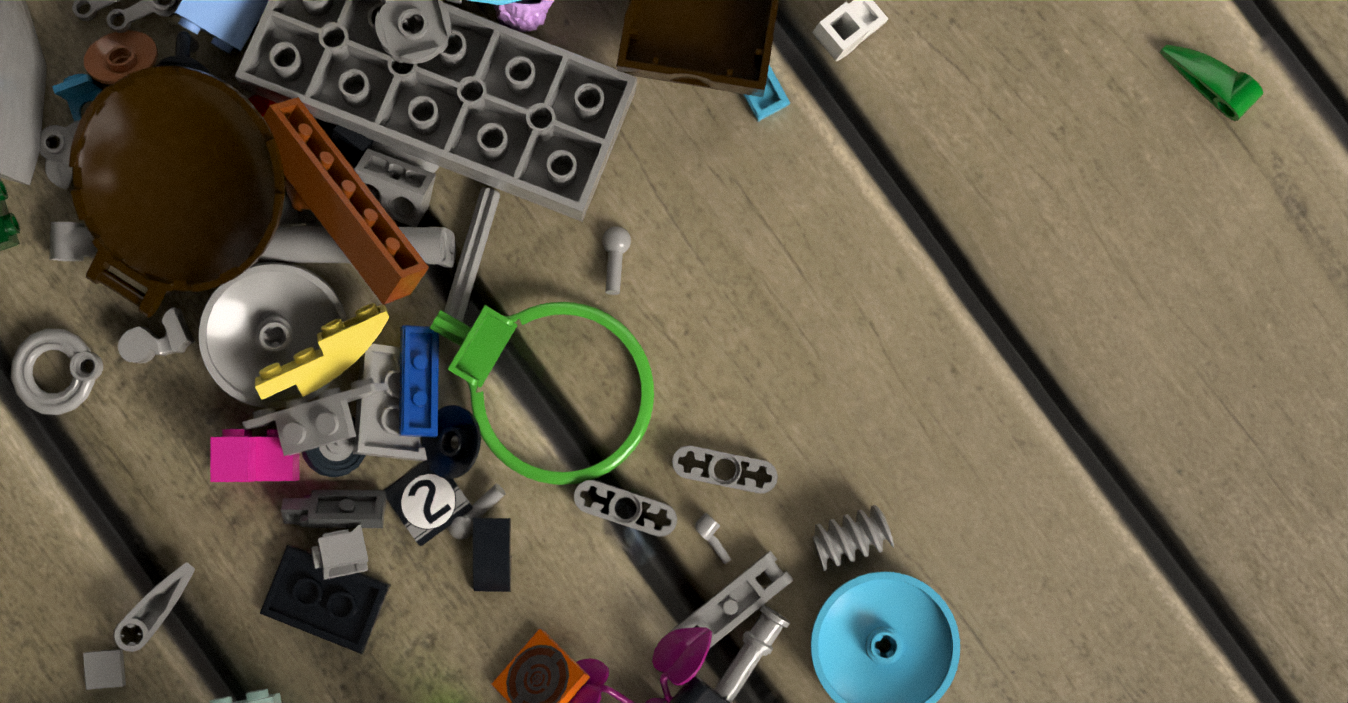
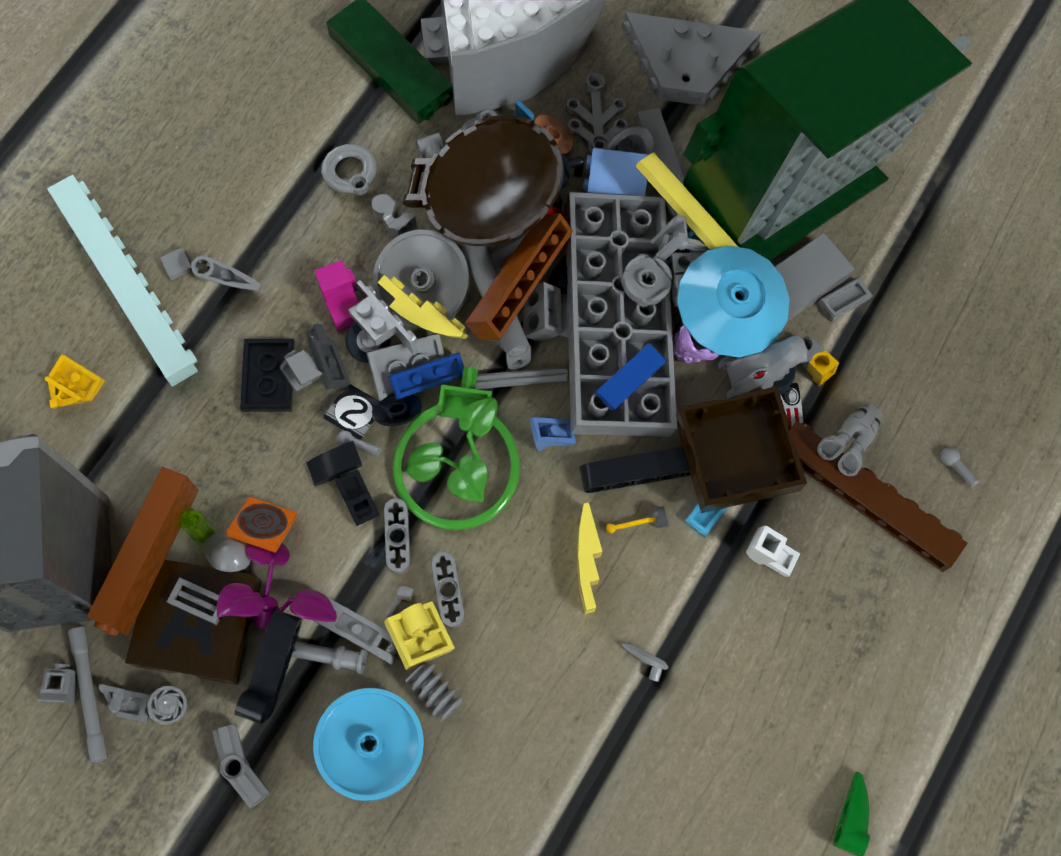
camera: 60 degrees right, 15 degrees down
(544, 109) = (631, 377): none -> blue tile
(551, 541) = (357, 497): none -> black slope
(570, 245) = (551, 432): none -> medium blue slope
(605, 384) = (471, 474): none -> bright green plant
(616, 242) = (567, 463): light grey bar -> none
(664, 158) = (634, 470): none -> black beam
(740, 157) = (656, 517): none -> hinge
(745, 265) = (587, 550): none -> light yellow slope
(772, 530) = (419, 634): none -> light yellow plate
(918, 246) = (648, 658): none -> light grey bar

